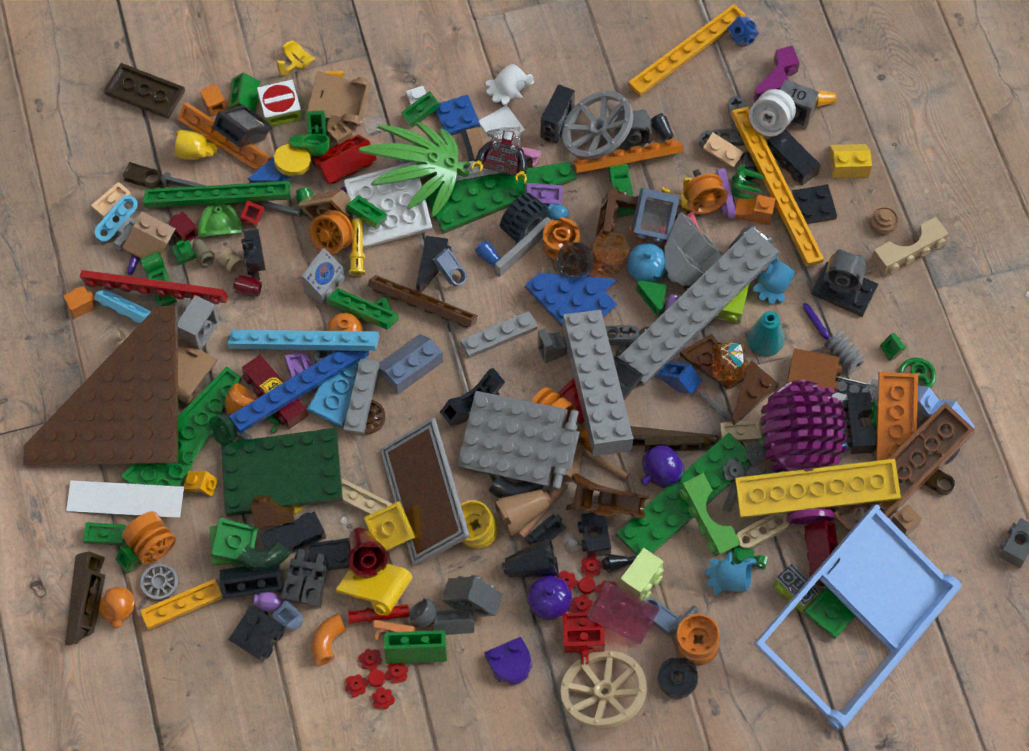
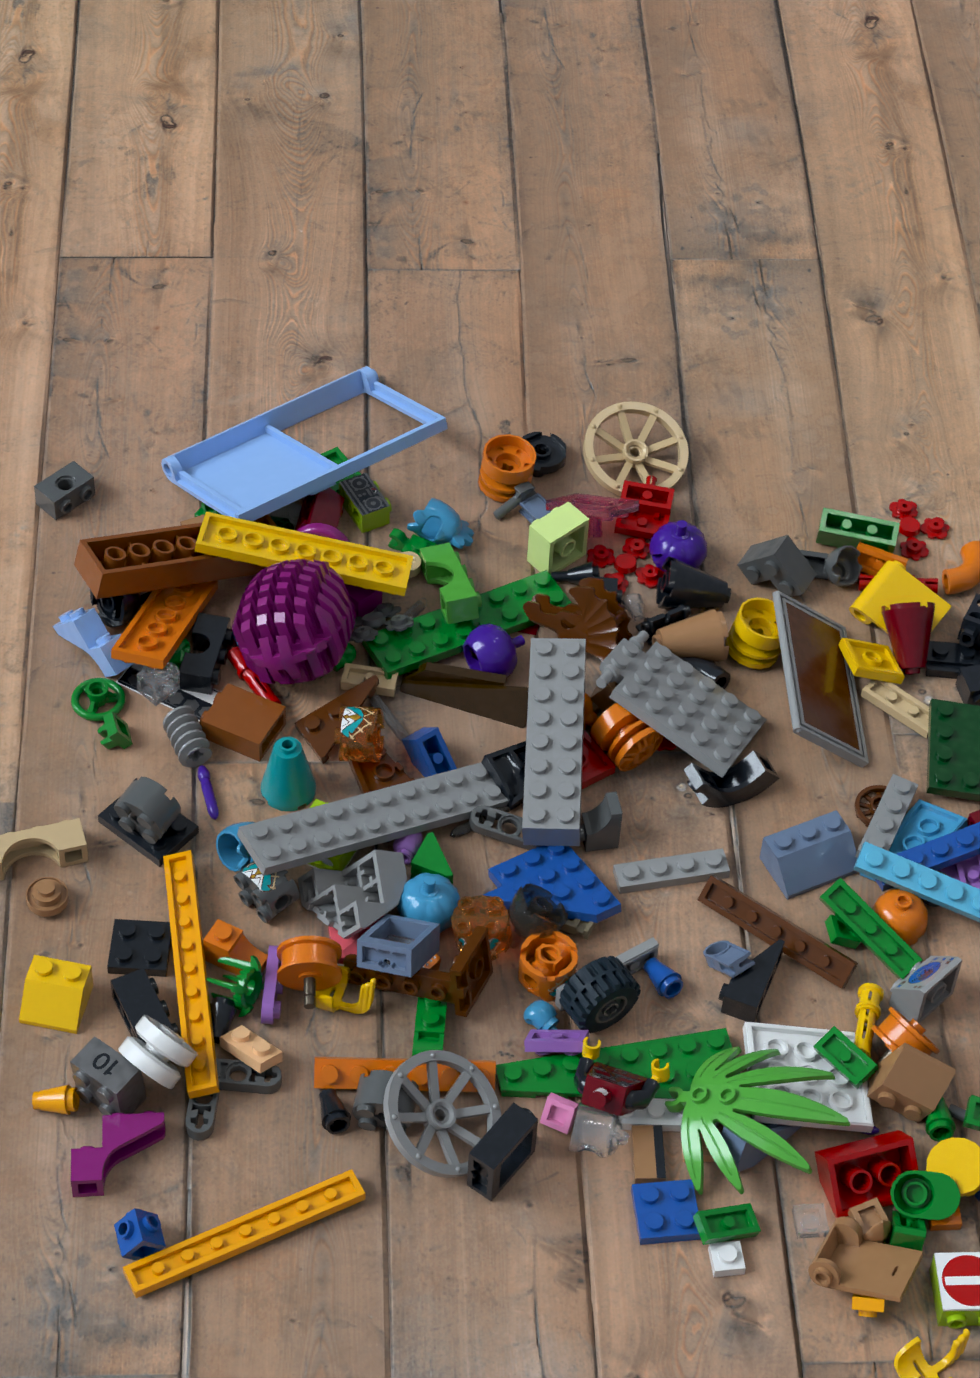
camera: 170 degrees left, 15 degrees down
(500, 118) = (594, 1184): white sticker -> none
(508, 84) = (571, 1229): white piece -> none
(510, 661) = (742, 507): dark purple slope -> none

